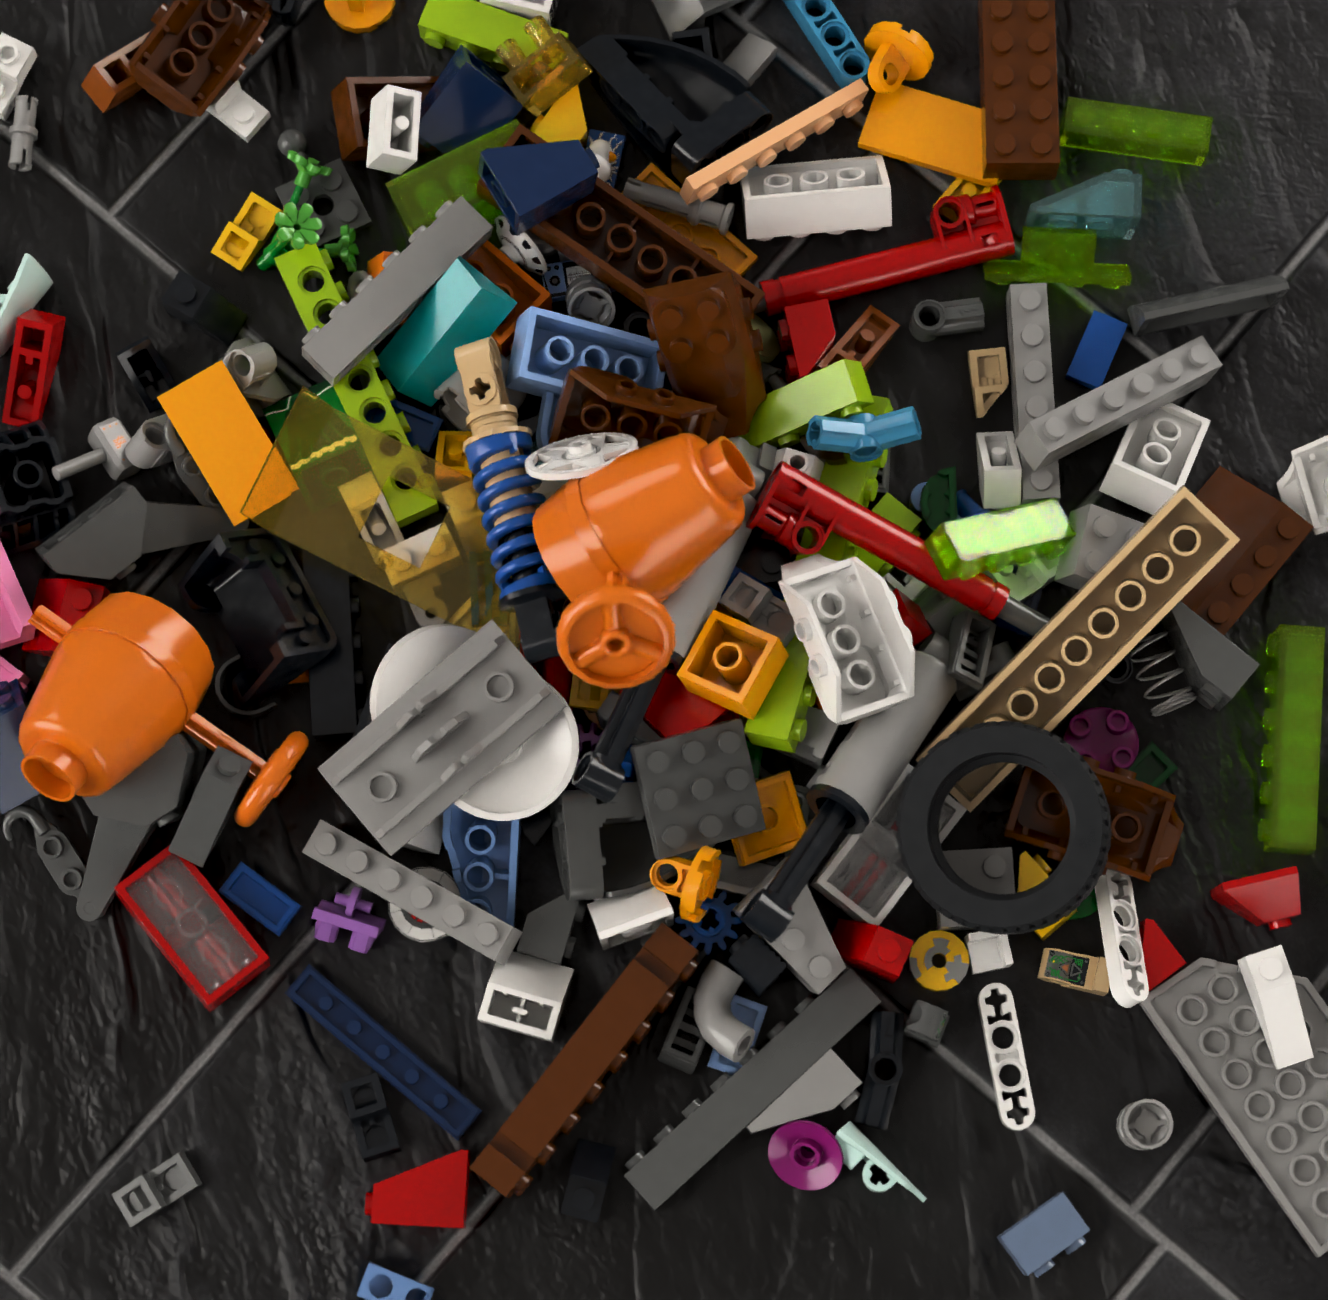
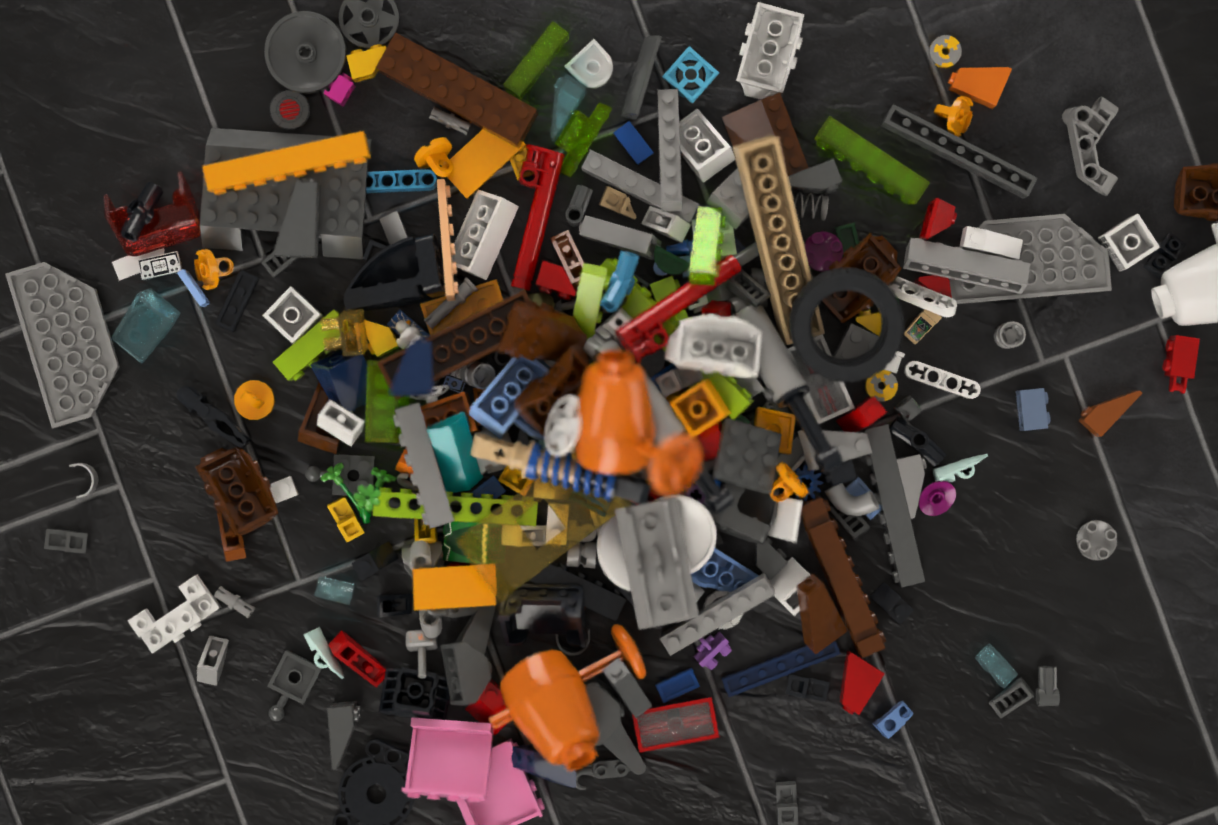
camera: 60 degrees left, 10 degrees up
(123, 271) = (334, 590): none -> clear light blue hips
(291, 364) = (424, 532): none -> yellow slope
(389, 619) = (582, 554): none -> light grey wheel
(500, 1059) = (818, 615): none -> reddish brown slope
(936, 406) = (619, 236): none -> light grey slope
(964, 54) = (450, 120): none -> light grey pin
(1178, 222) = (591, 66): none -> white tile
(1216, 983) = (966, 265): none -> light grey brick
(1256, 377) = (690, 75): none -> medium azure piece

